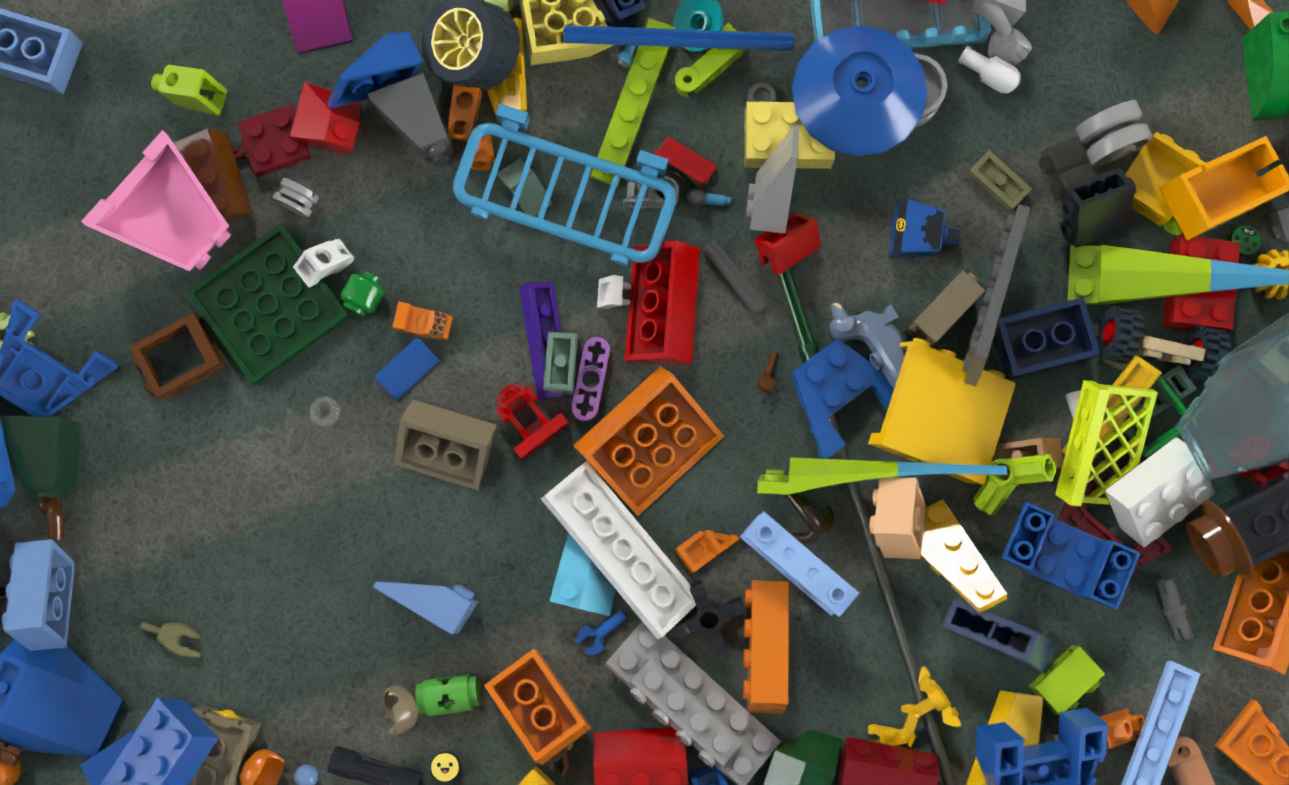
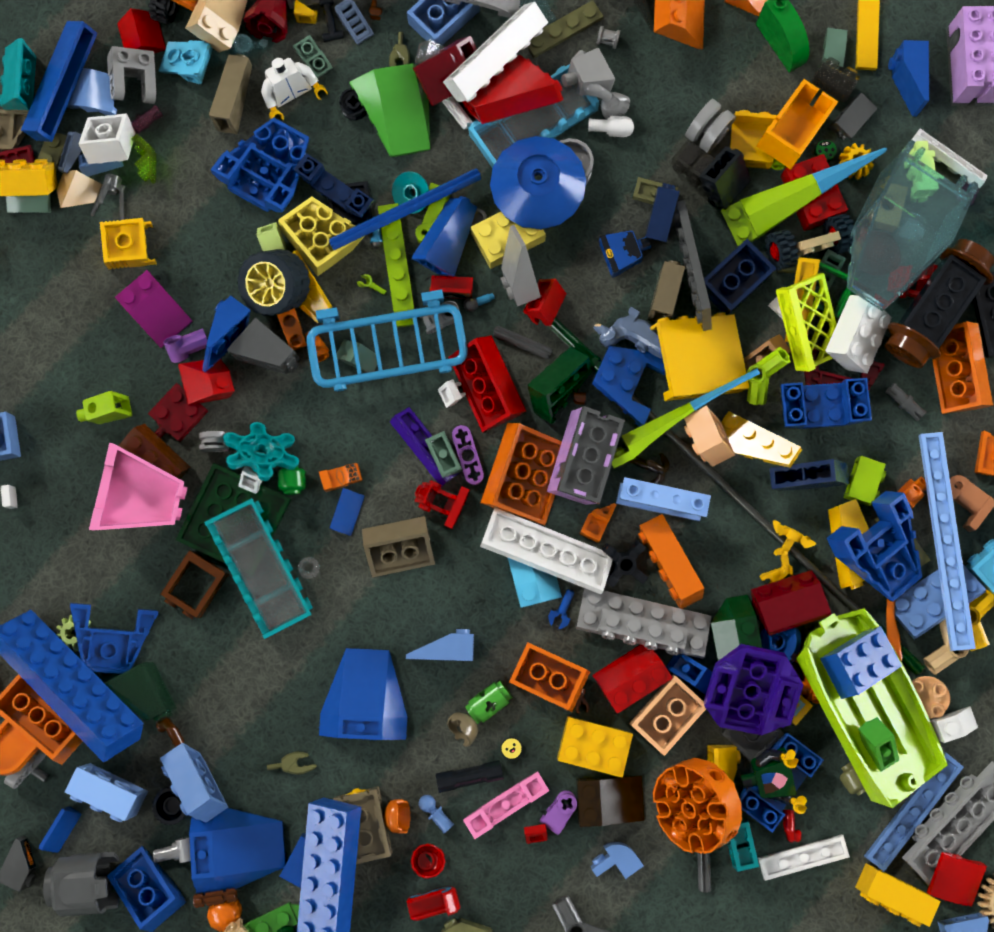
camera: 30 degrees left, 0 degrees up
(21, 134) = (9, 496): none -> white tile
(263, 378) = (259, 567): none -> clear window
(302, 608) = (364, 699): none -> blue wedge
(318, 63) = (180, 346): none -> medium lavender piece
(352, 228) = (260, 441): none -> teal plate
(588, 109) = (369, 283): none -> lime hand
(711, 100) = (447, 237): none -> blue slope
(732, 458) = (585, 456): none -> dark grey piece
(749, 348) = (557, 382): none -> dark green wedge
(993, 208) = (662, 212): none -> dark blue brick

